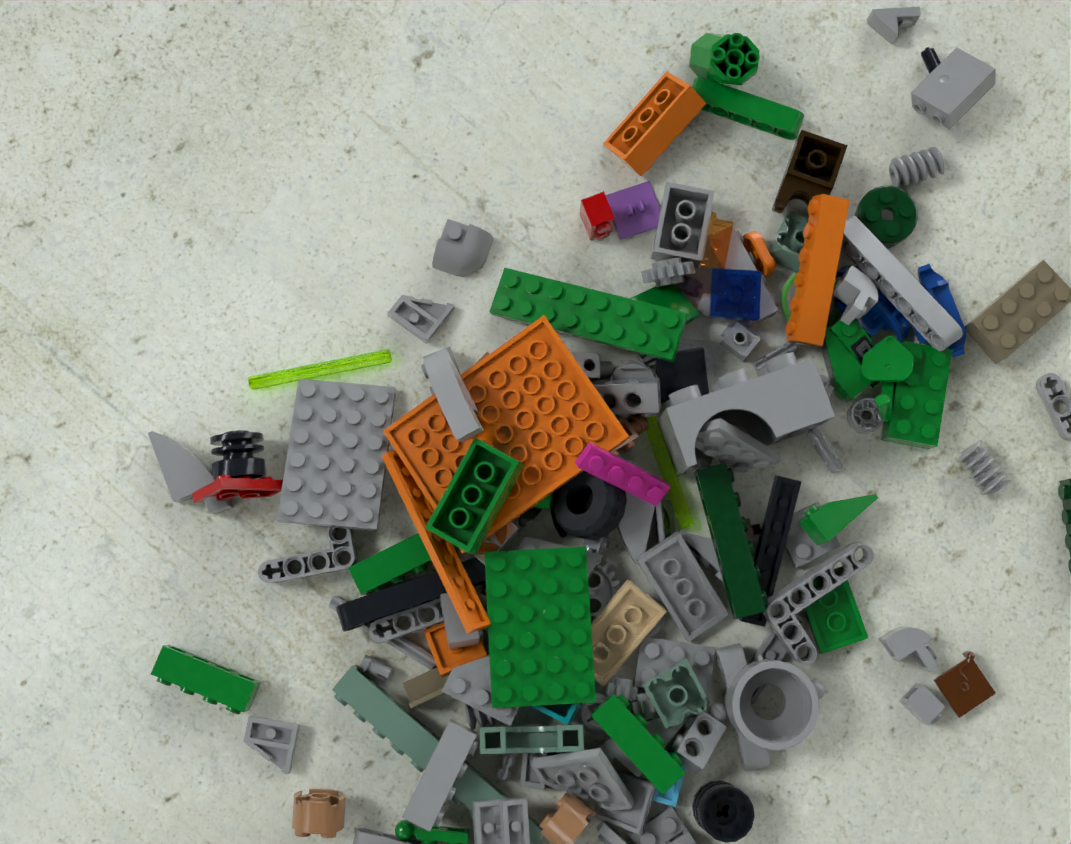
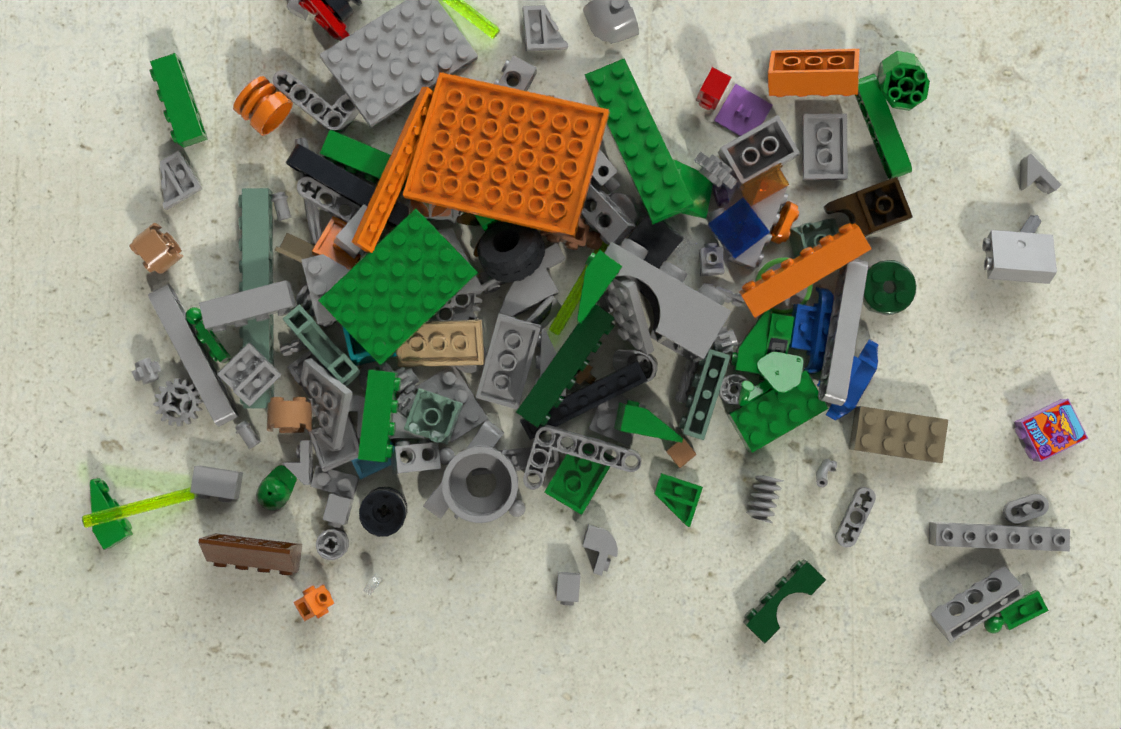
camera: 45 degrees right, 5 degrees up
(271, 608) = (262, 105): none -> orange wheel
(453, 396) = (500, 96): light grey slope -> none
(474, 496) = (445, 168): green brick -> none
(622, 474) = (546, 254): dark pink plate -> none
(692, 449) = (597, 278): none -> green slope
(722, 168) = (824, 147): none -> light grey plate
(762, 484) = (625, 356): none -> light grey cap
(855, 447) = (705, 394): none -> sand green brick
(857, 292) = (813, 310): light grey brick -> none
(883, 507) = (681, 453): none -> medium nougat tile
(916, 164) = (941, 278): light grey piece -> none
(920, 540) = (678, 496): none -> green wing
(964, 685) = (604, 605): reddish brown hat -> none
(998, 401) = (821, 474): none -> light grey arm

